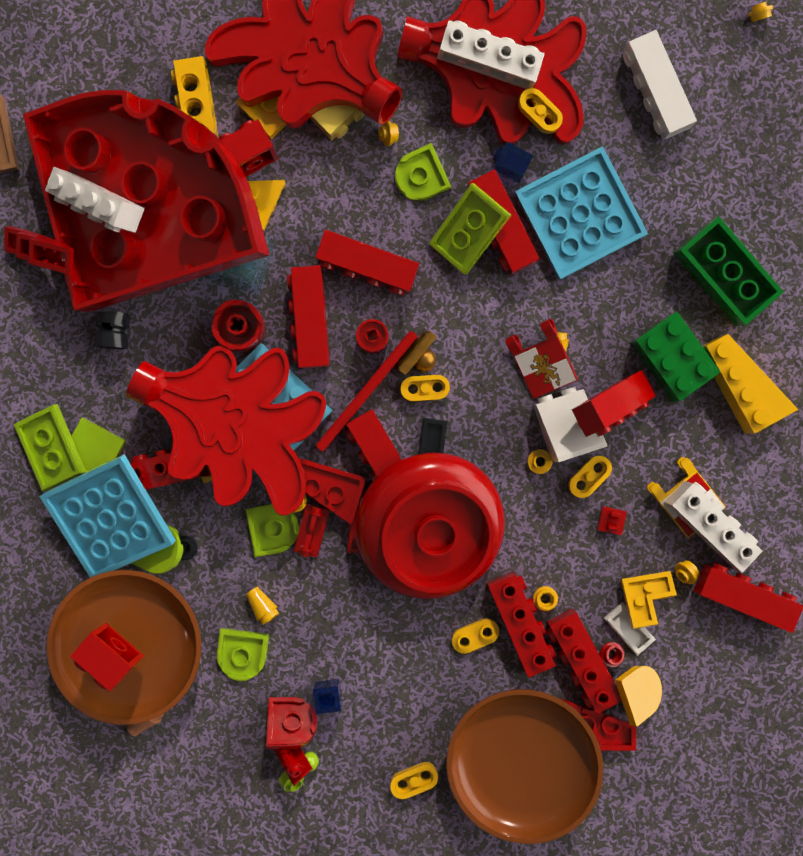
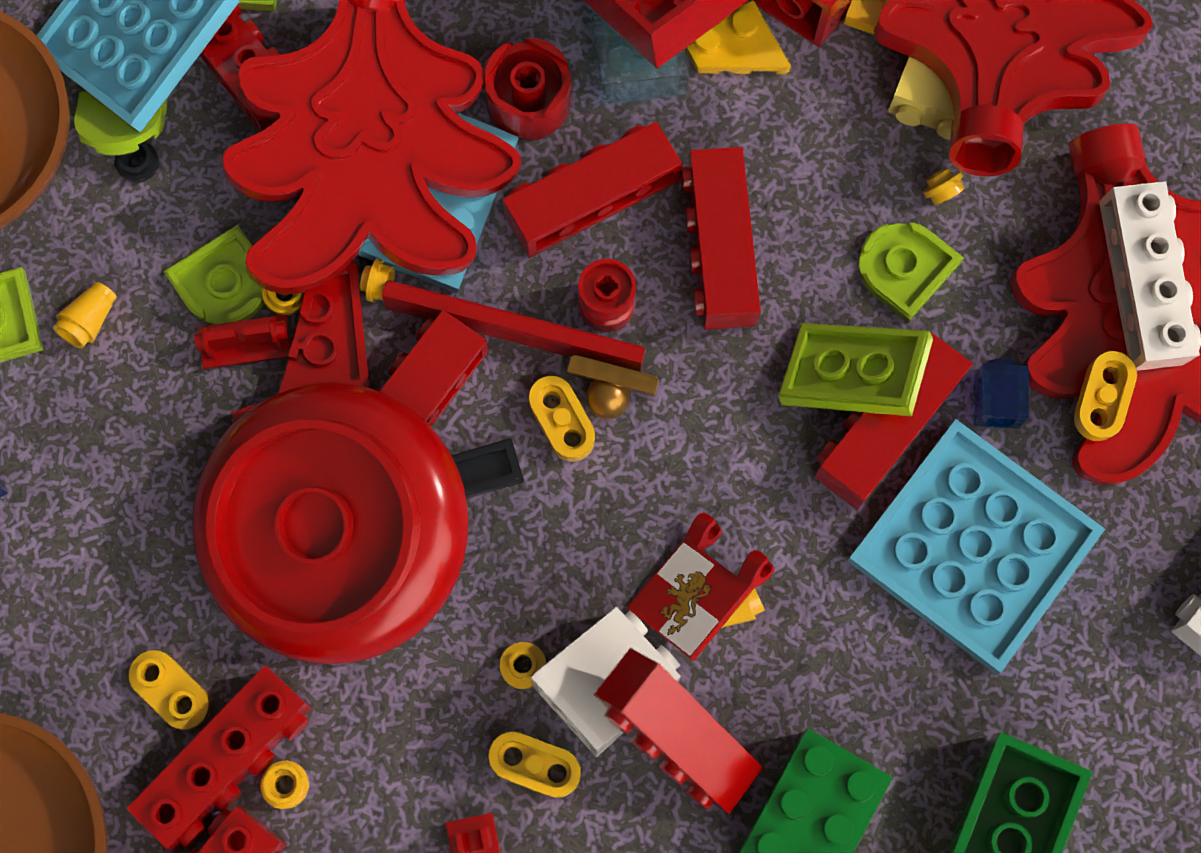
camera: 65 degrees right, 15 degrees down
(310, 450) = (374, 279): none -> yellow plate

